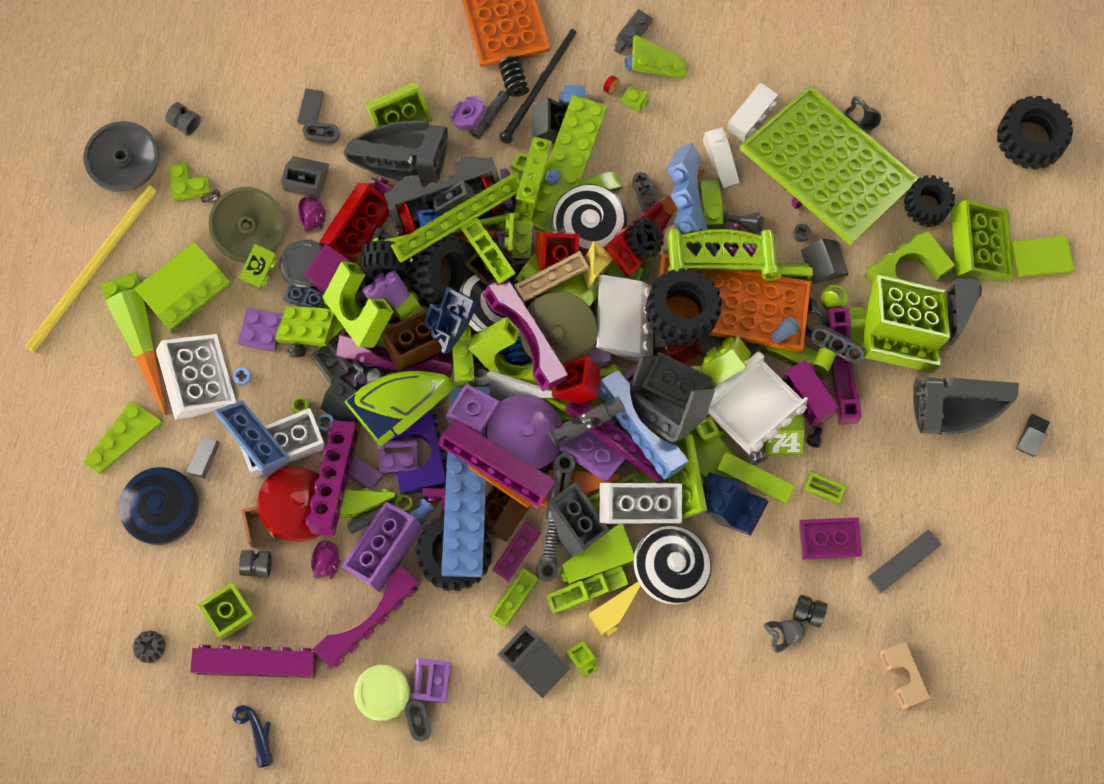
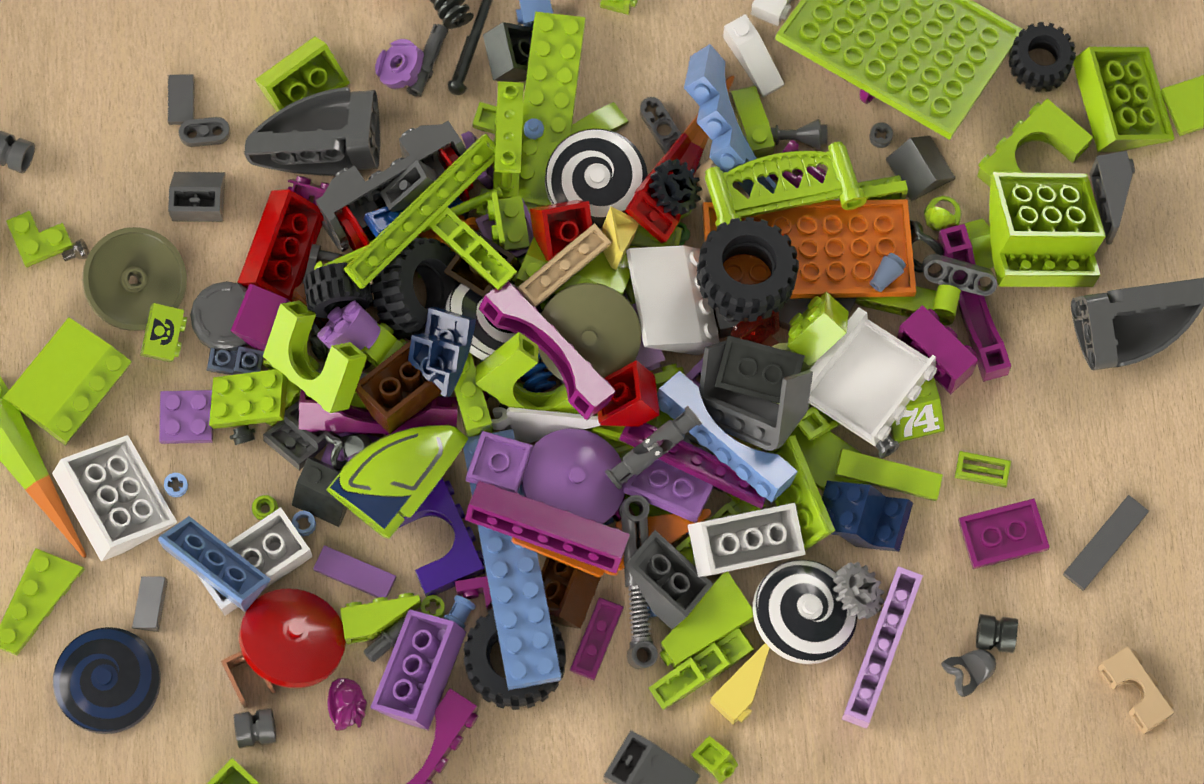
camera: 10 degrees left, 0 degrees up
(311, 213) = (217, 244): magenta hat -> none
(327, 523) = (340, 653): magenta brick -> none
(398, 462) = (412, 554): medium lavender plate -> none
(514, 597) = (607, 699): lime tile -> none
(715, 557) = (858, 590): none -> light grey gear
(723, 603) = (882, 647): none -> lavender brick
(814, 440) = (956, 408): black piece -> none

